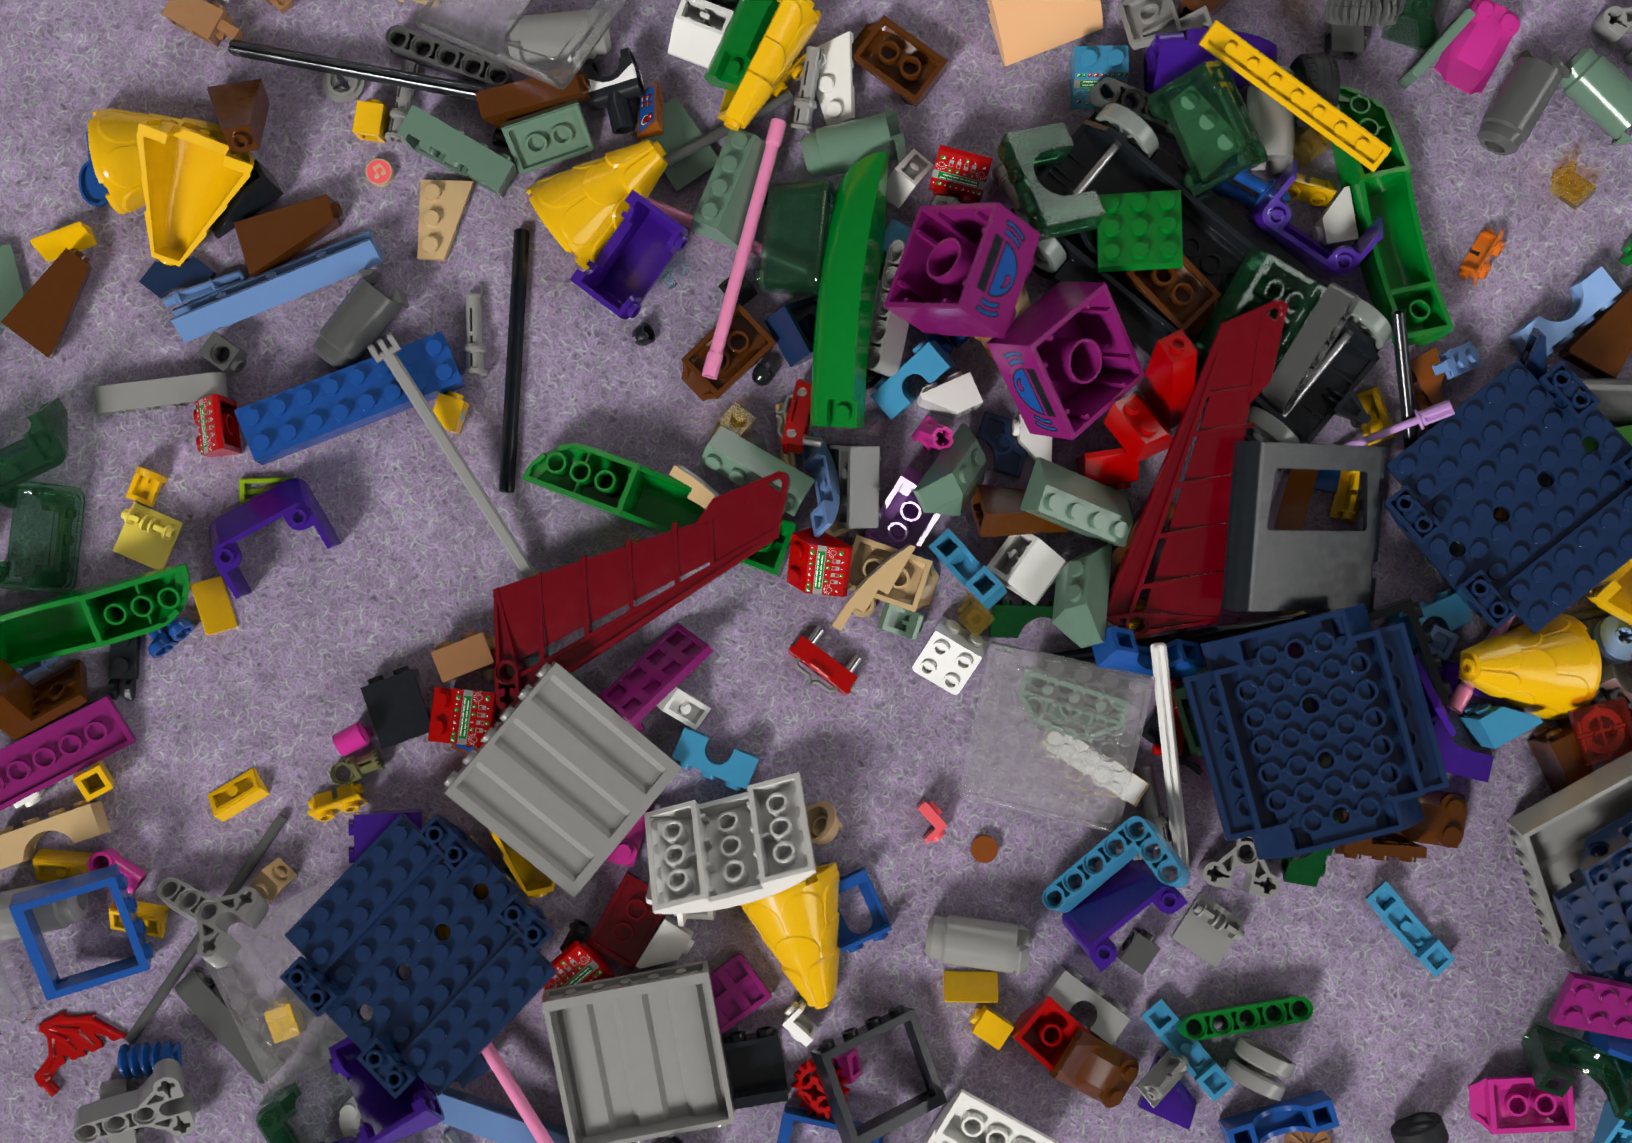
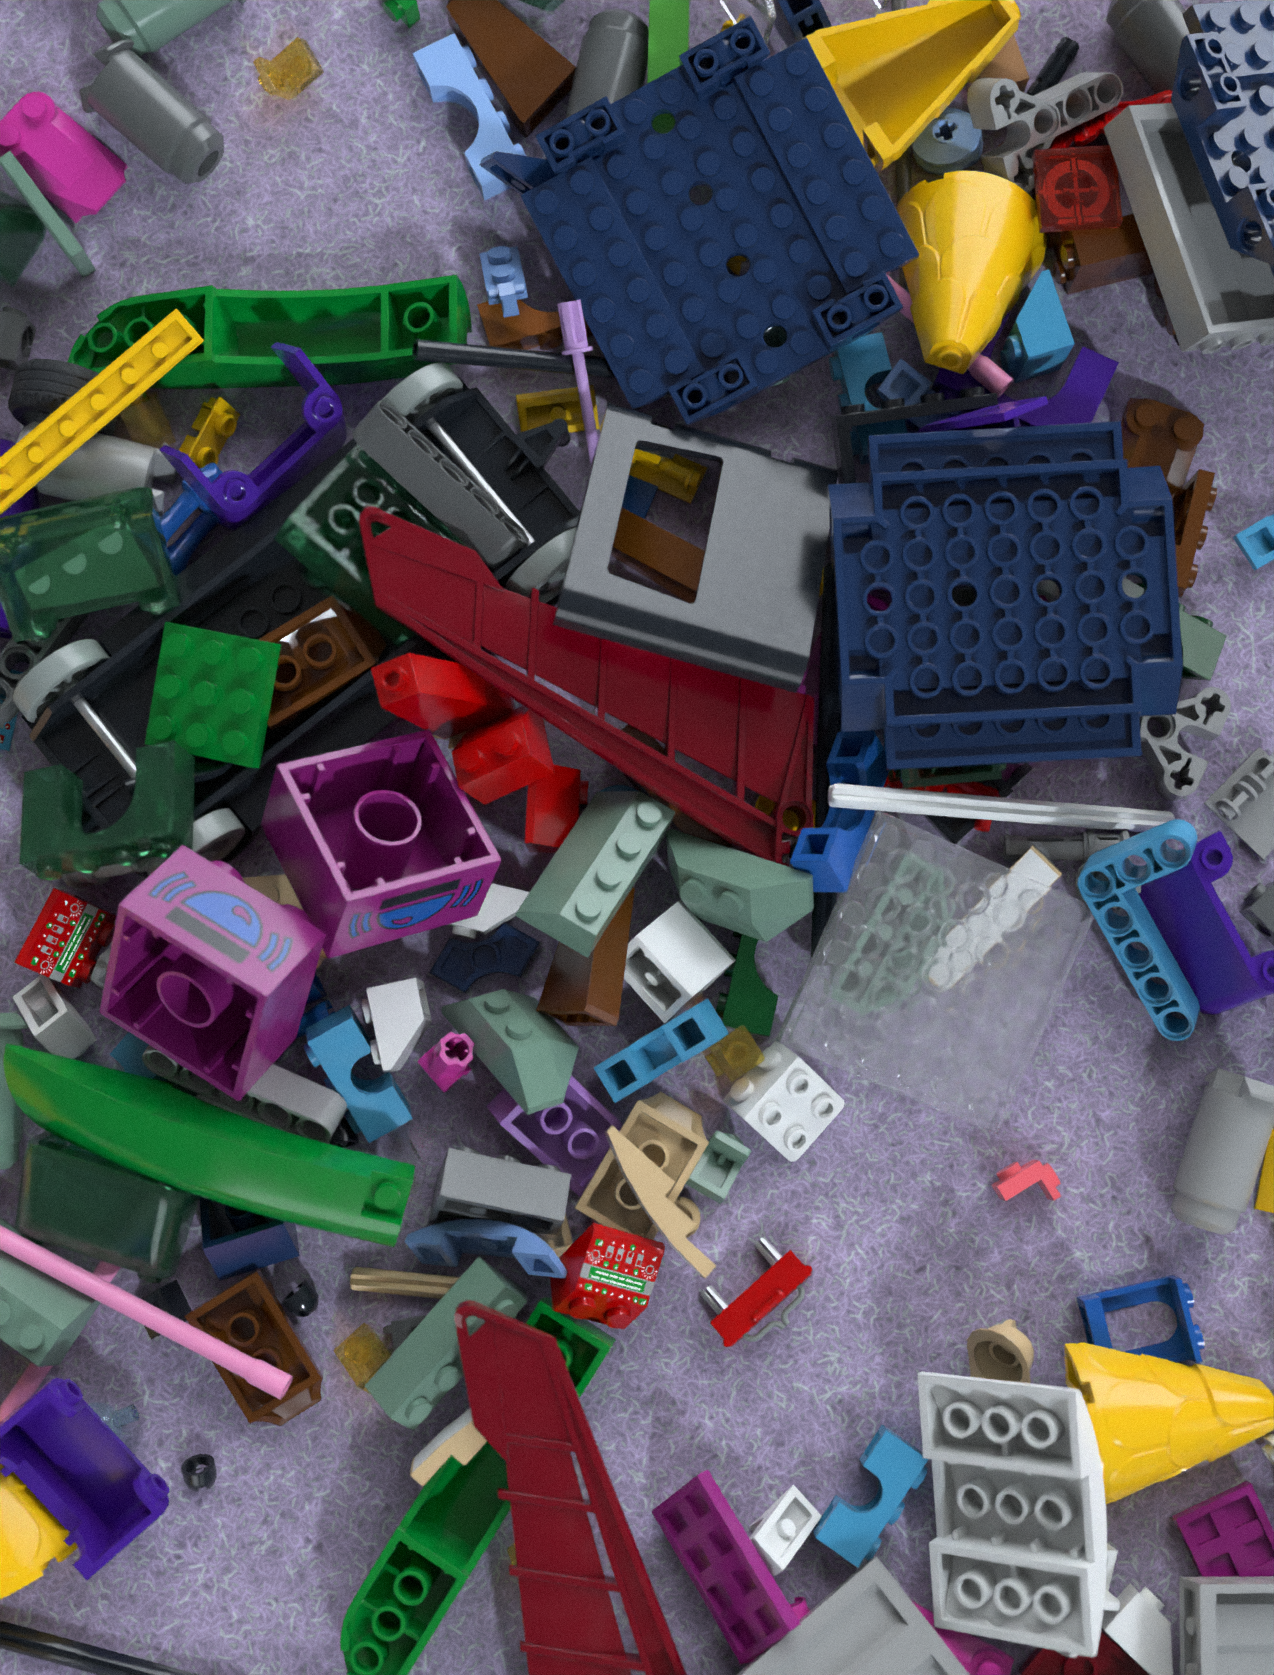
camera: 70 degrees left, 5 degrees down
(798, 420) = (389, 1265): red piece -> none
(984, 848) = (1082, 1109): dark orange tile -> none
(1337, 222) = (266, 404): white slope -> none
(1488, 246) = (349, 201): orange hinge -> none

